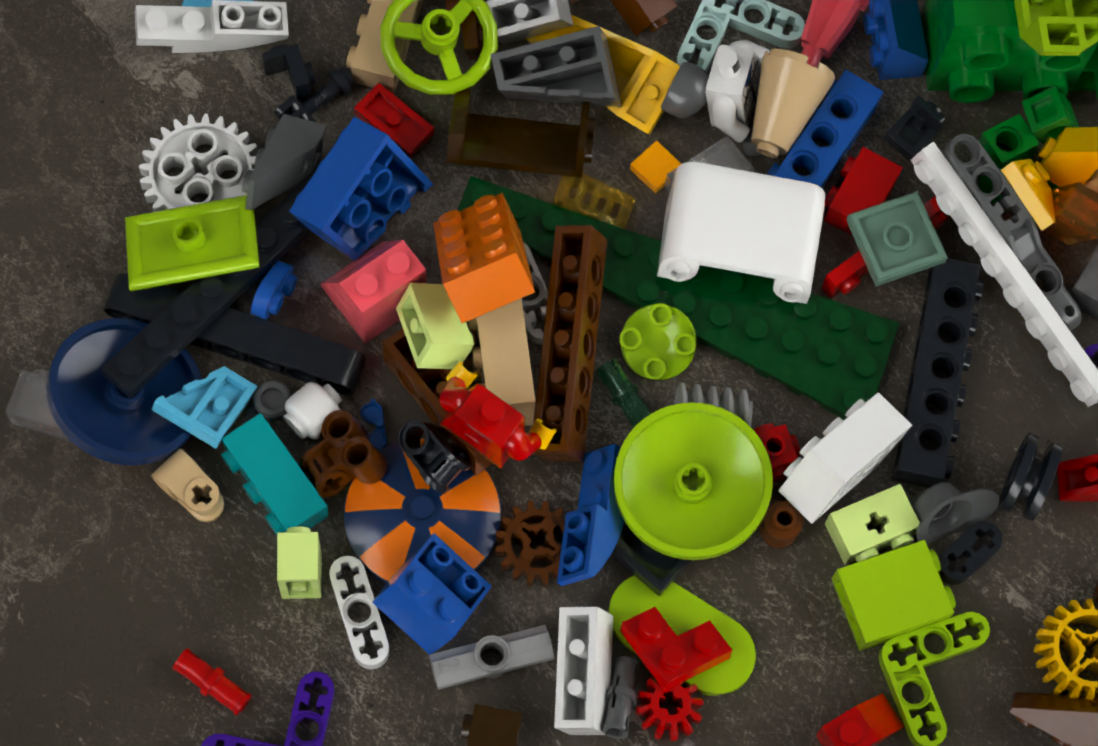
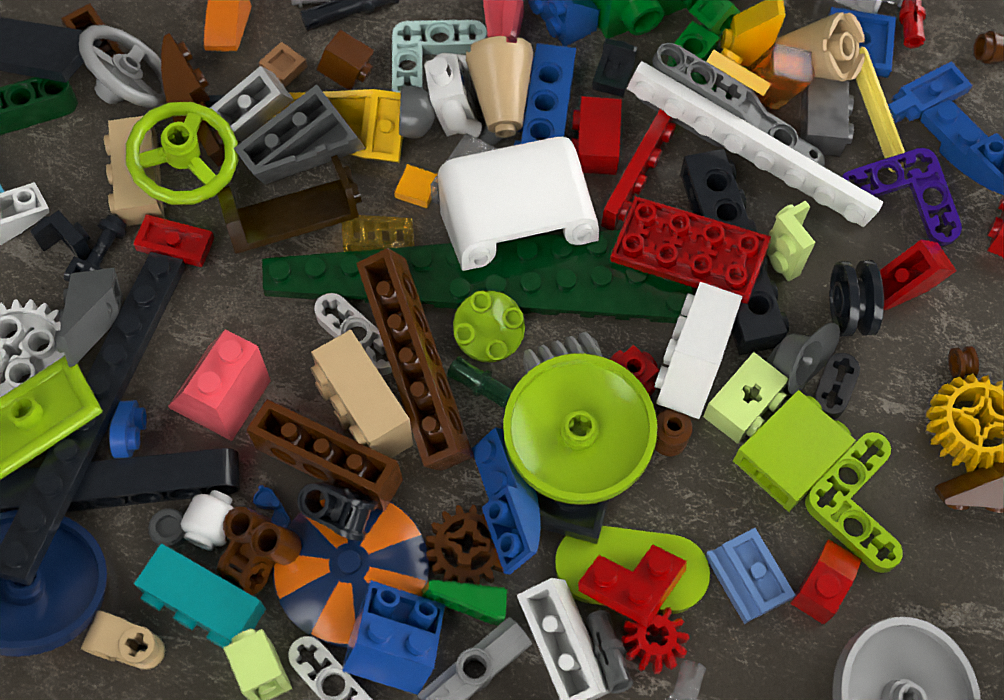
camera: 20 degrees left, 5 degrees down
(208, 405) = (109, 559): medium azure wing -> none
(358, 189) = (166, 307): blue wedge -> none
(433, 327) = (288, 394): yellowish green brick -> none
(482, 257) = (304, 316): orange brick -> none
(488, 421) = (375, 454): red torso -> none
(522, 596) = (475, 600): none -> green slope
(788, 691) = (750, 575): none -> medium blue plate
(891, 354) = (690, 248): none -> red tile
(896, 238) = (646, 155): sand green tile -> none
(992, 387) = (790, 241): none -> yellowish green bracket

